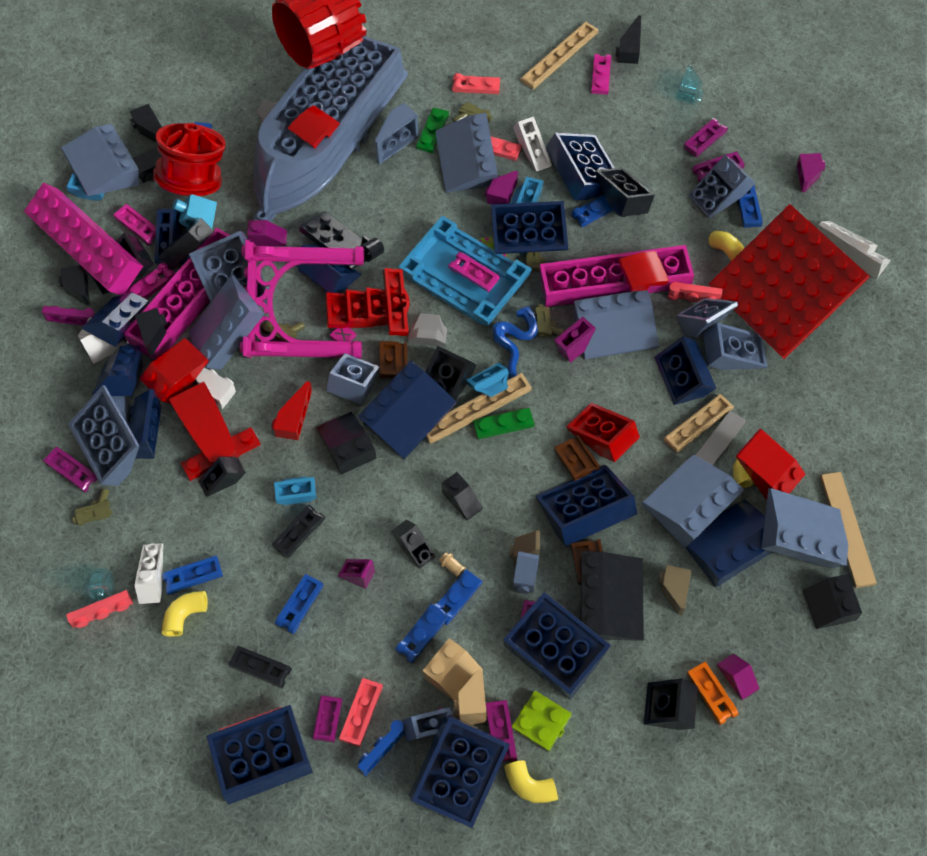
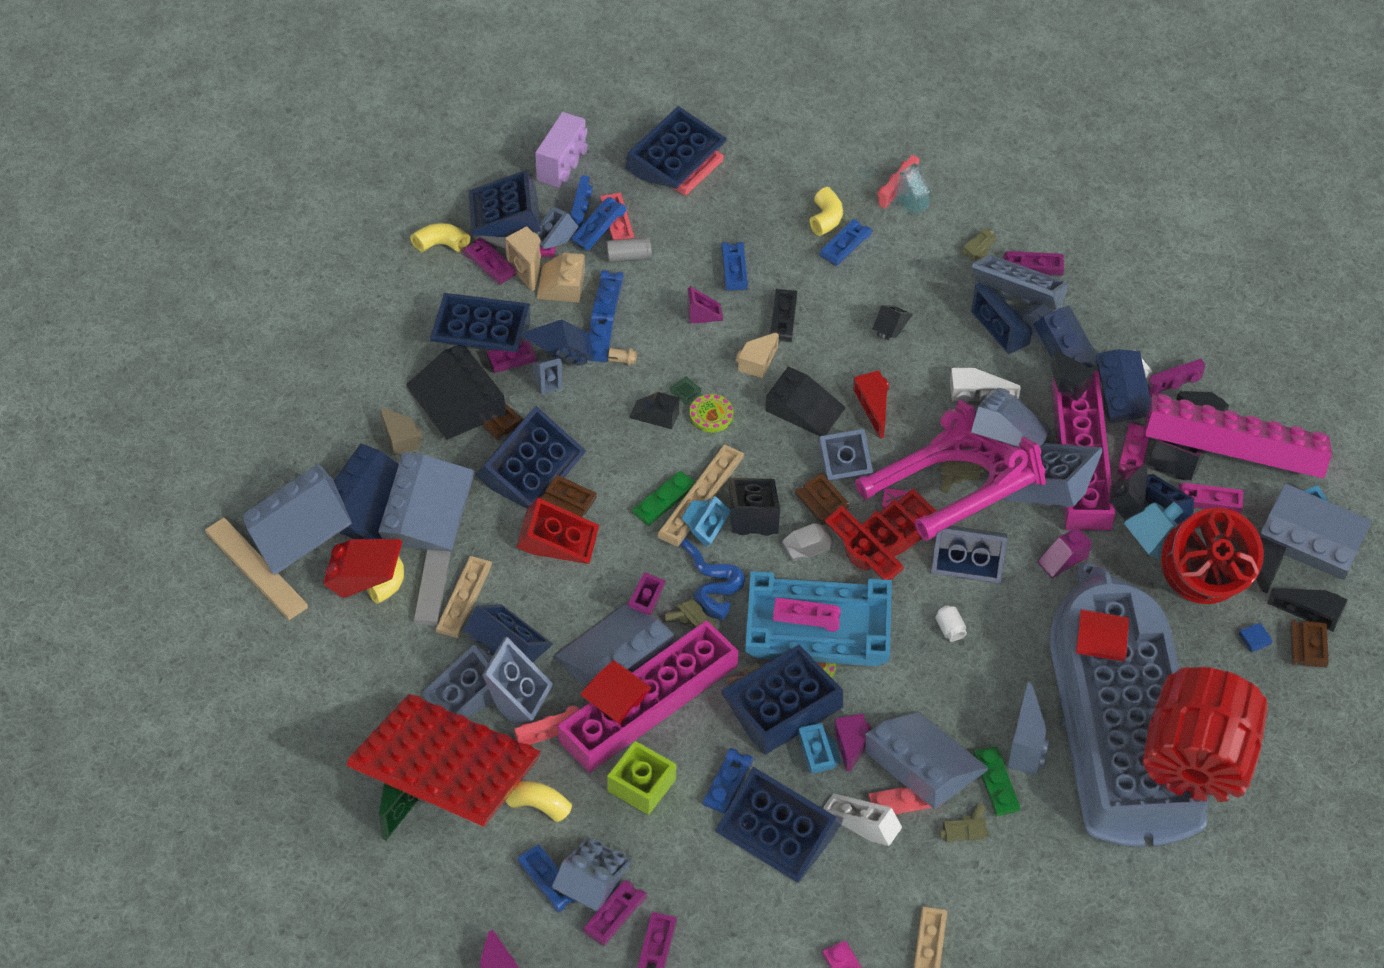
camera: 145 degrees right, 10 degrees down
(149, 574) = (878, 216): white slope -> none
(174, 370) = (1018, 366): red slope -> none
(175, 109) = (1309, 644): none -> reddish brown plate
(208, 430) = (936, 342): red slope -> none
(259, 666) = (728, 209): black plate -> none
(295, 490) = (816, 343): dark azure slope -> none
(327, 719) = (641, 203): magenta plate -> none
(335, 230) = (959, 583): black hinge -> none
(347, 501) = (757, 355): none -> tan slope
(361, 814) = (561, 150): none -> lavender brick
(374, 669) = (629, 249): none -> light grey pin
(380, 228) = (951, 623): none -> white brick
(384, 708) = (598, 223): none -> blue plate
(407, 409) = (766, 451): dark blue slope -> none
(413, 543) = (672, 351): black slope -> none
(419, 475) = (711, 413): none -> lime tile
(423, 507) = (685, 390): none -> clear green tile
(475, 84) = (995, 872): coral plate -> none
(506, 579) = (563, 341): none -> dark blue slope
(526, 543) = (559, 391): dark tan slope -> none
(542, 721) = (459, 280): lime plate -> none
(624, 192) = (709, 802): black slope -> none
(655, 226) = (641, 777): none -> lime brick
(671, 704) = (350, 341): black slope -> none
(712, 692) = (320, 370): orange plate -> none
(739, 675) = (304, 394): magenta slope -> none
(832, 602) = (238, 489): black slope -> none
(856, 247) = (391, 883): white slope -> none

